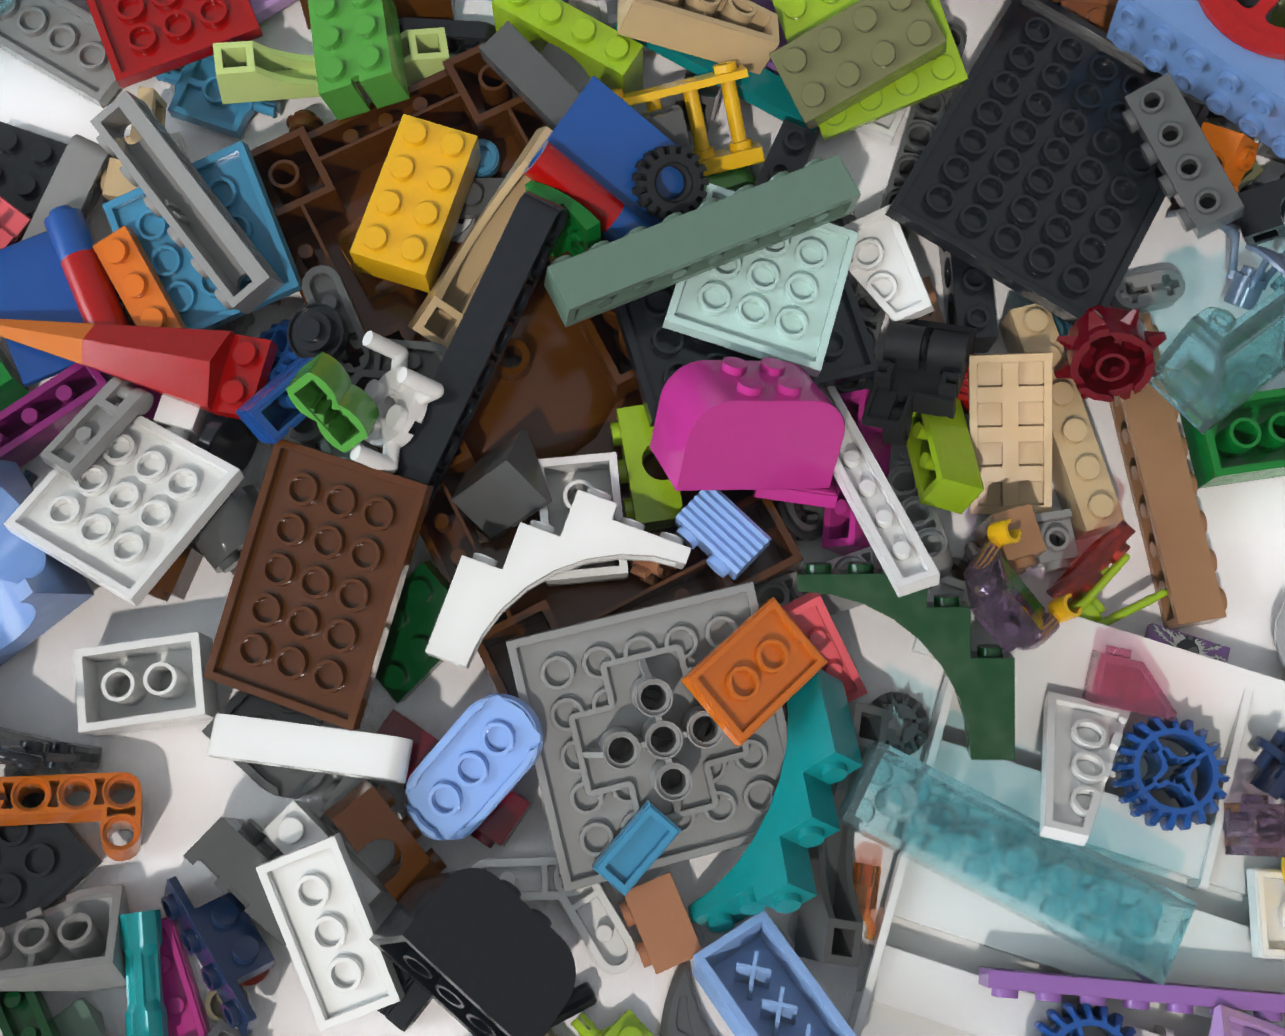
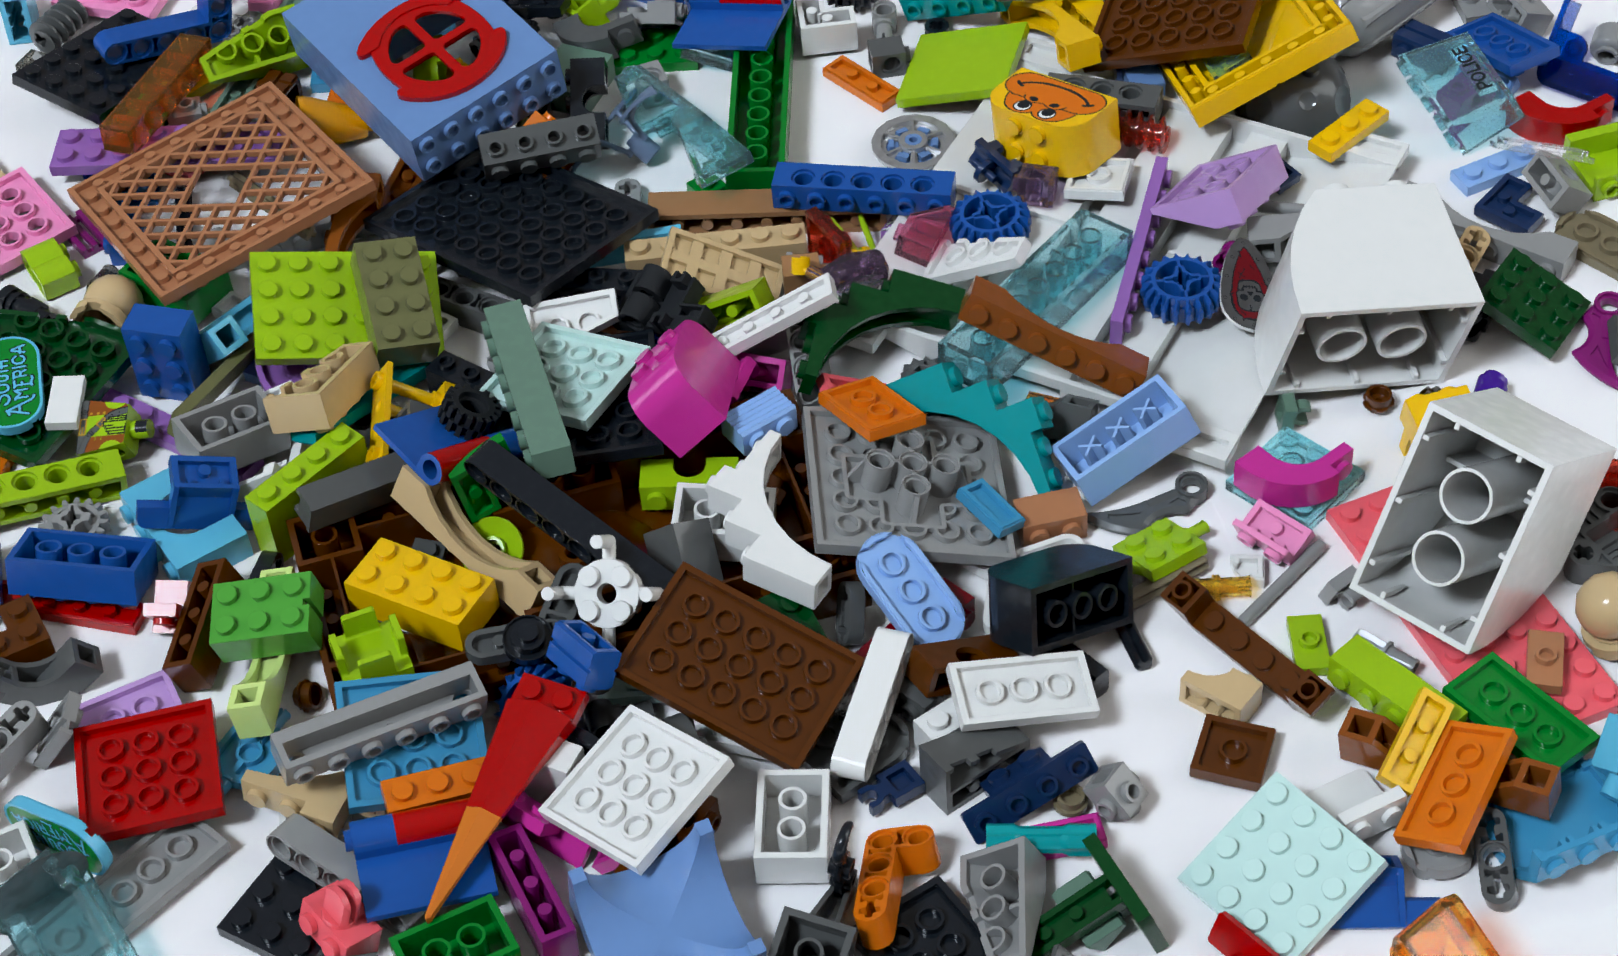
camera: 75 degrees left, 30 degrees down
(96, 427) = (565, 804): light grey plate -> none
(229, 792) = (893, 785): none -> dark blue plate
(308, 168) = (370, 647): none -> lime panel
(327, 396) = (601, 601): bright green brick -> none
(458, 696) = (850, 613): none -> dark grey beam
(922, 816) = (1004, 317): none -> dark orange arch
(1109, 353) = (680, 199): dark red brick -> none
(1205, 571) = (861, 188): none -> blue brick

